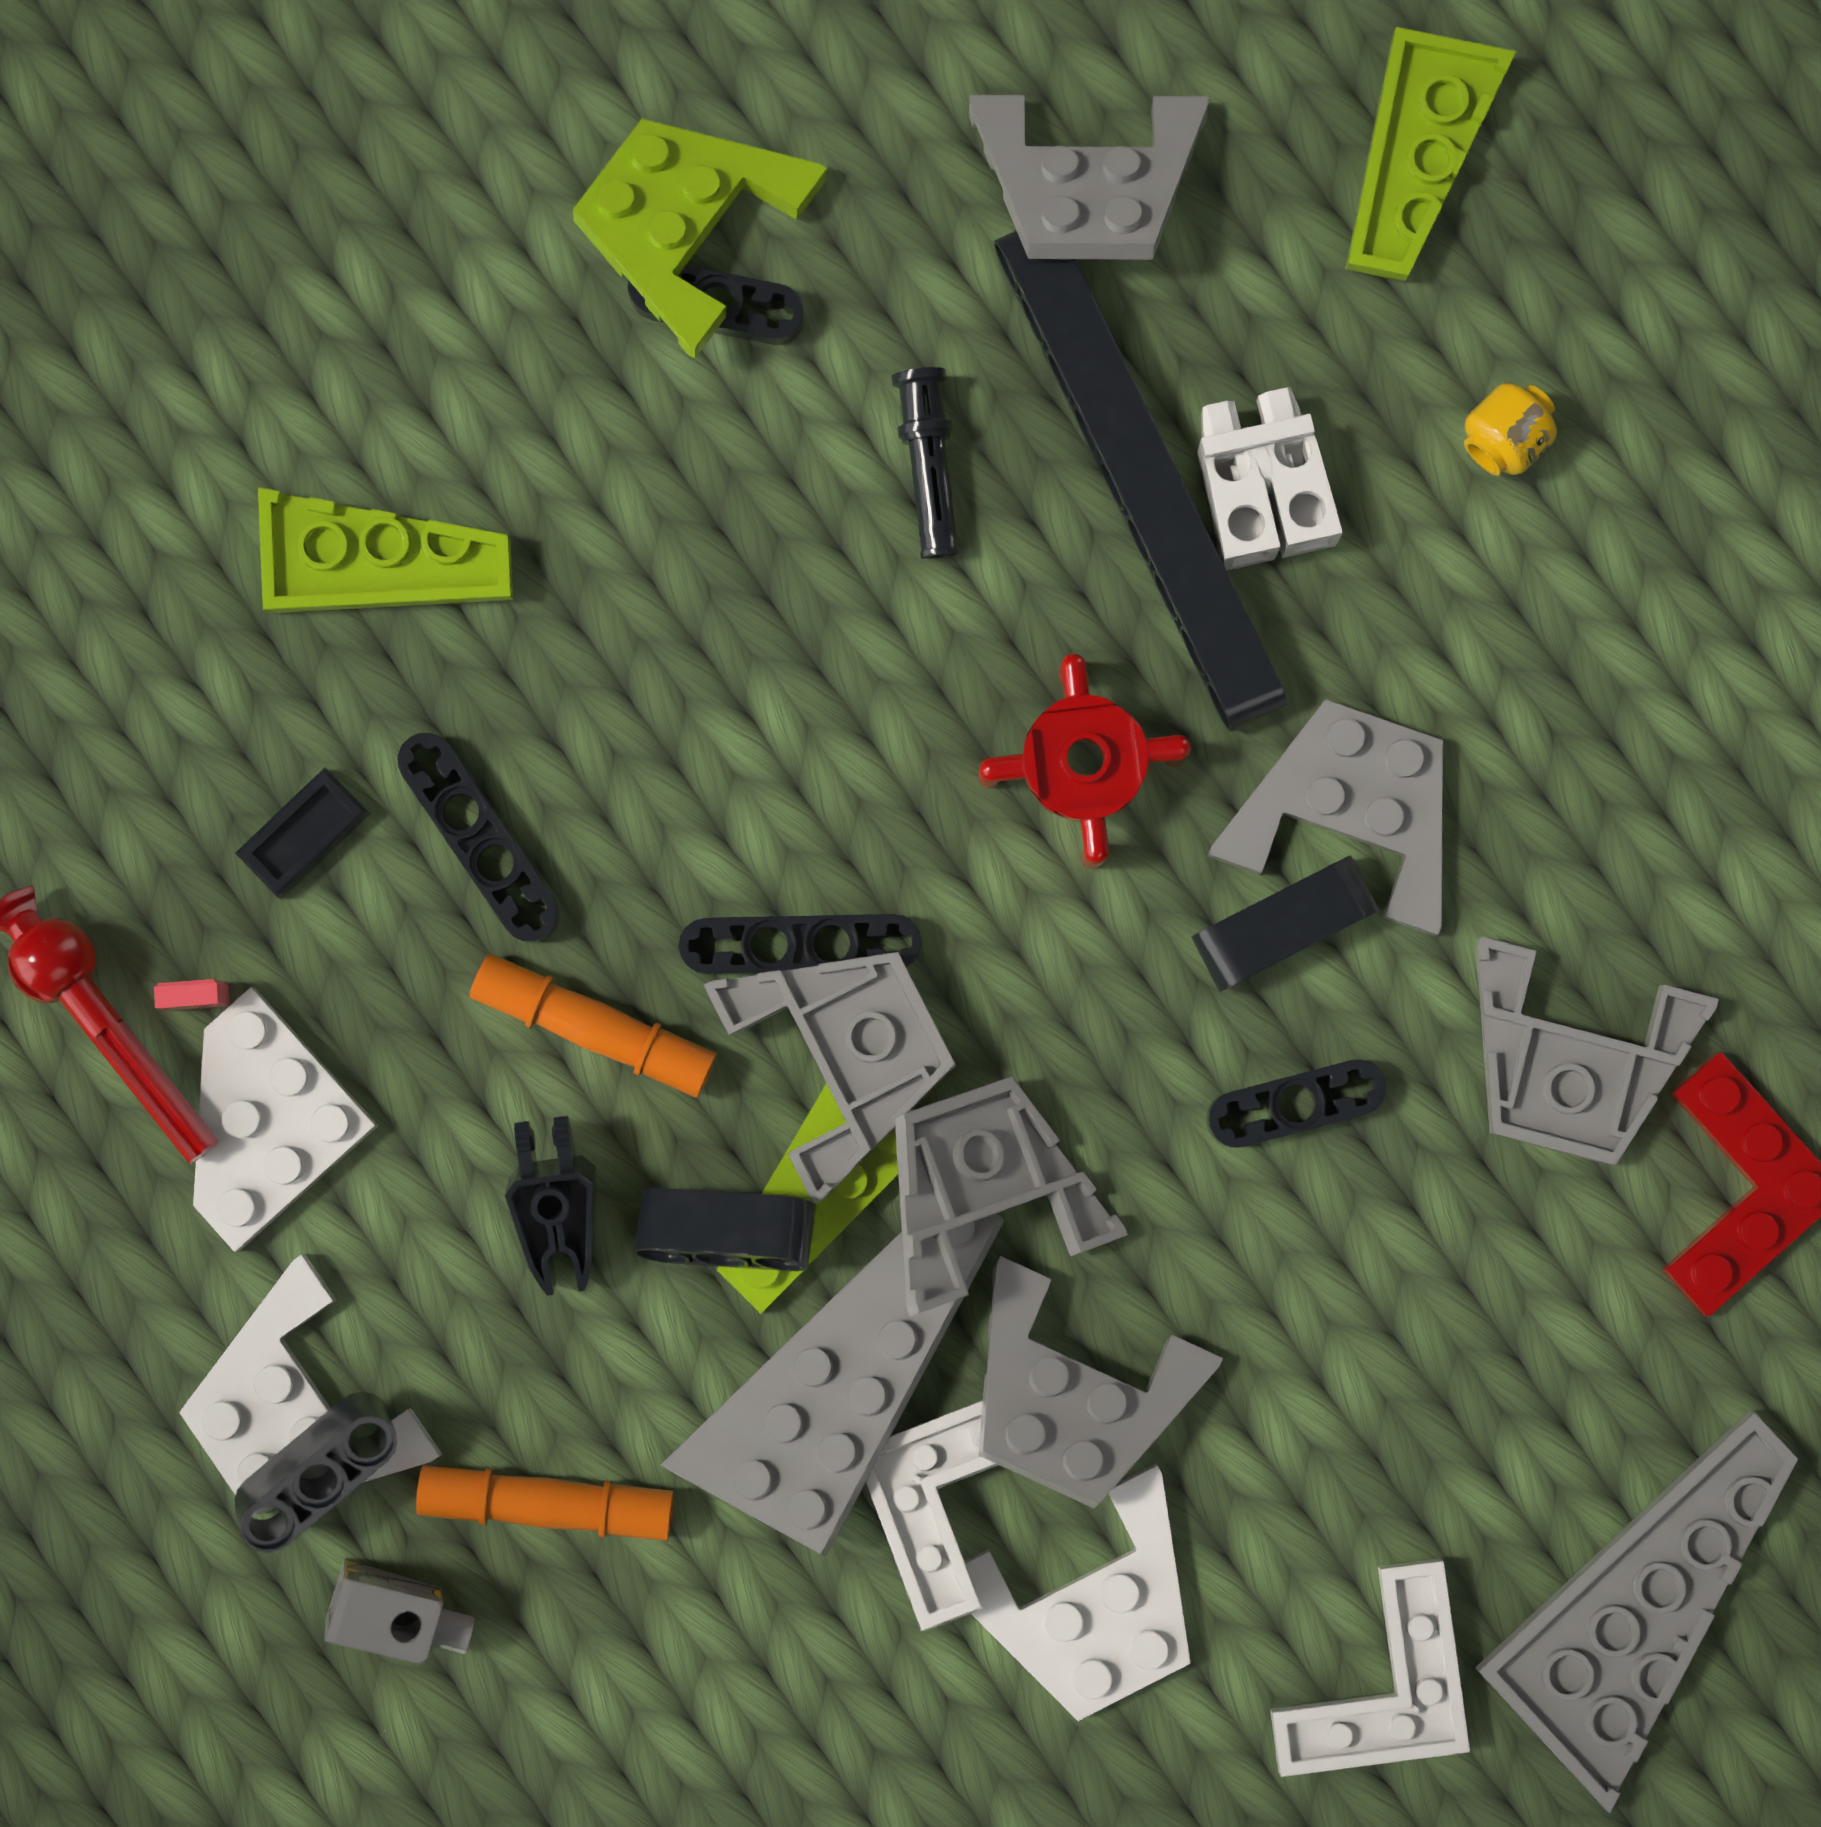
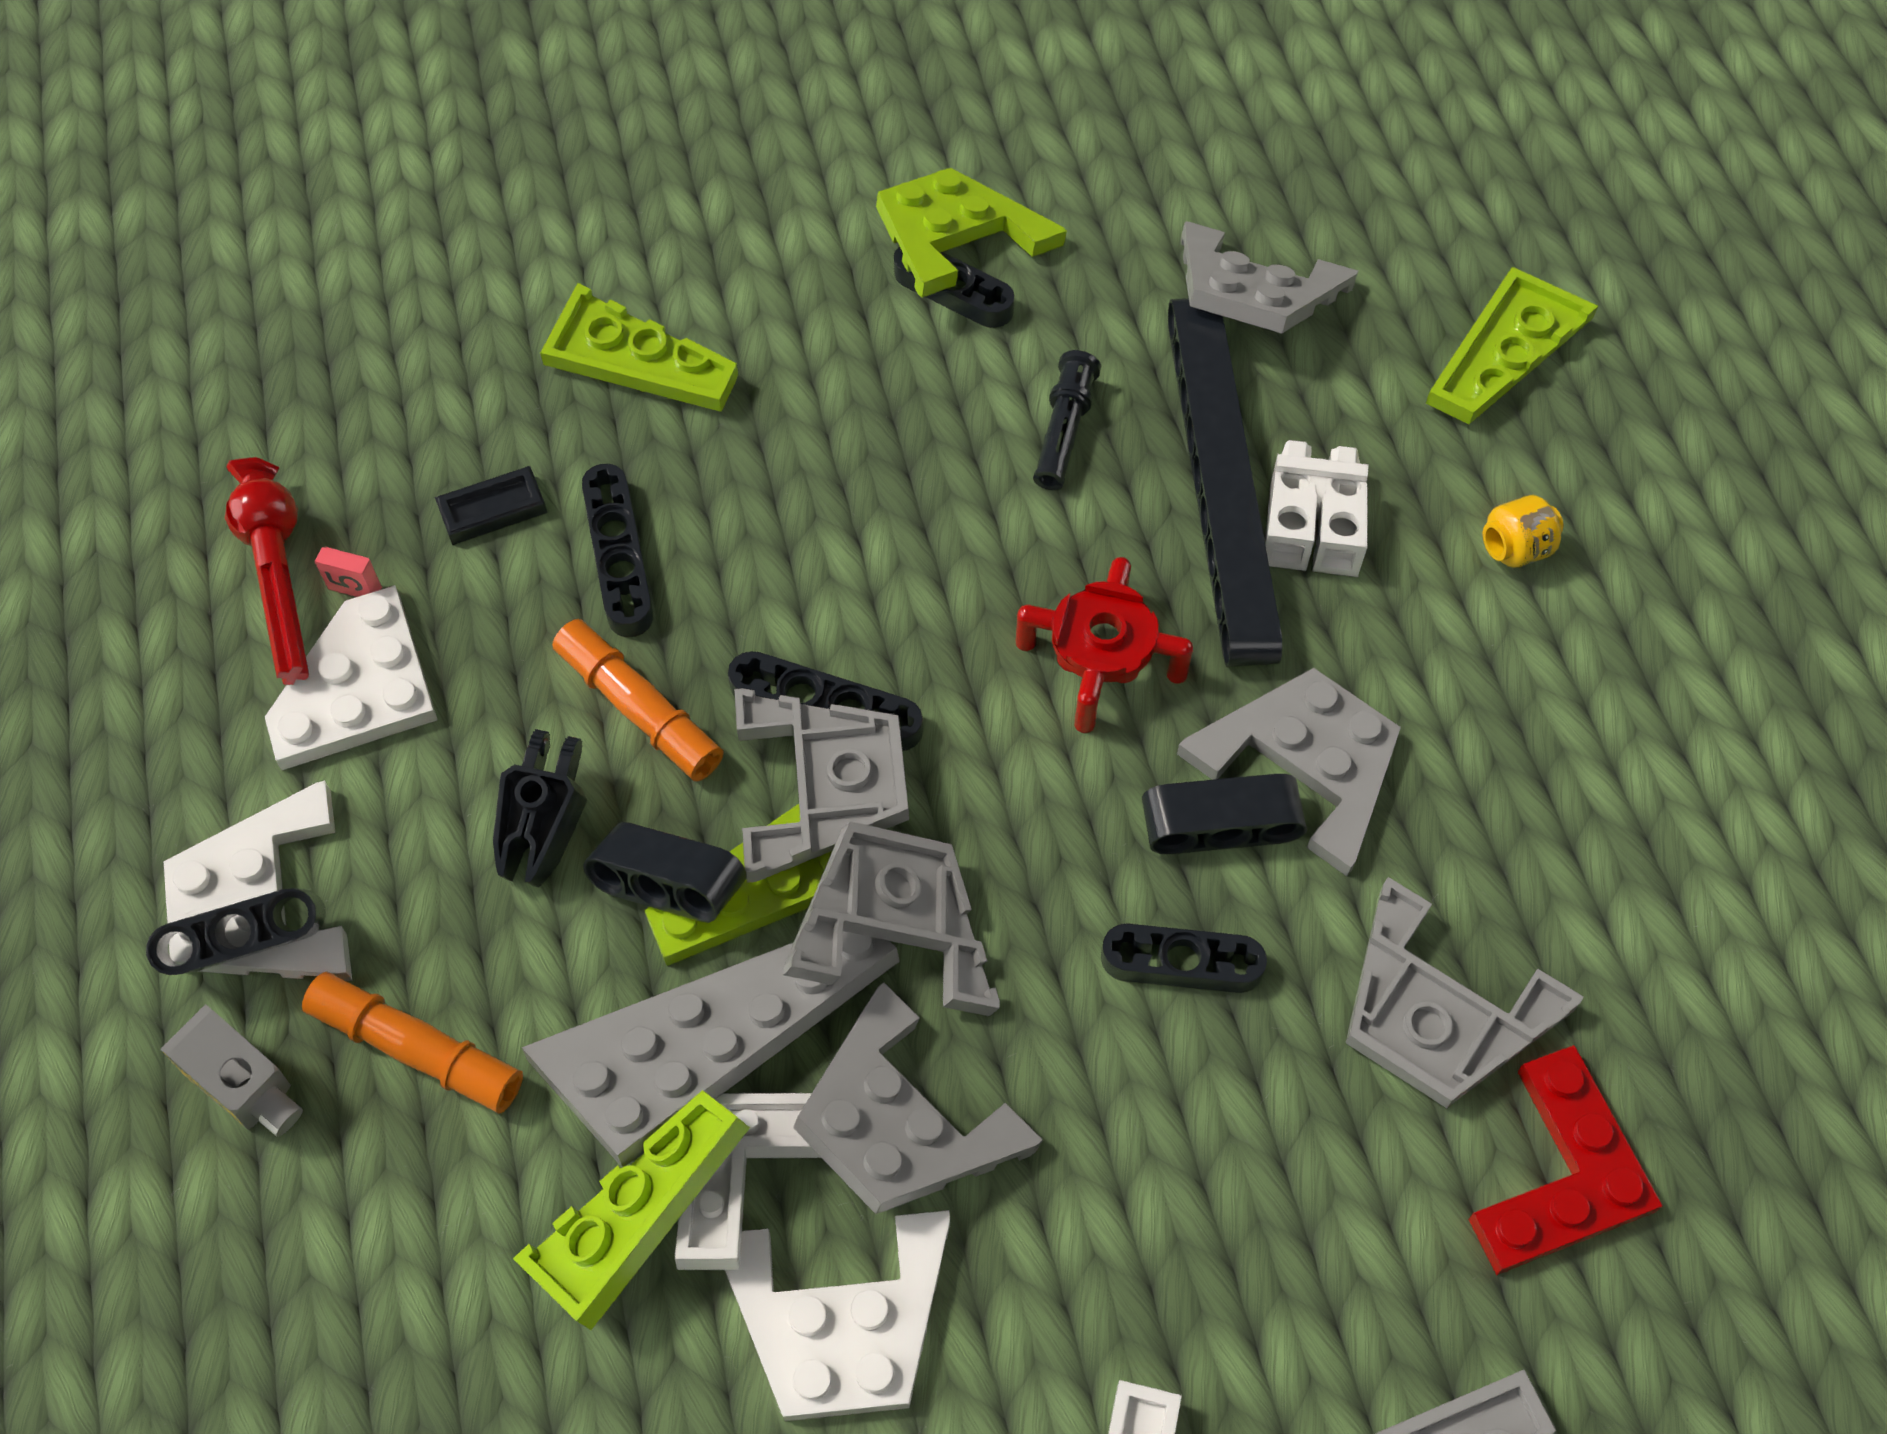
camera: 20 degrees right, 25 degrees down
(849, 1620) = (618, 1229): none -> lime wing

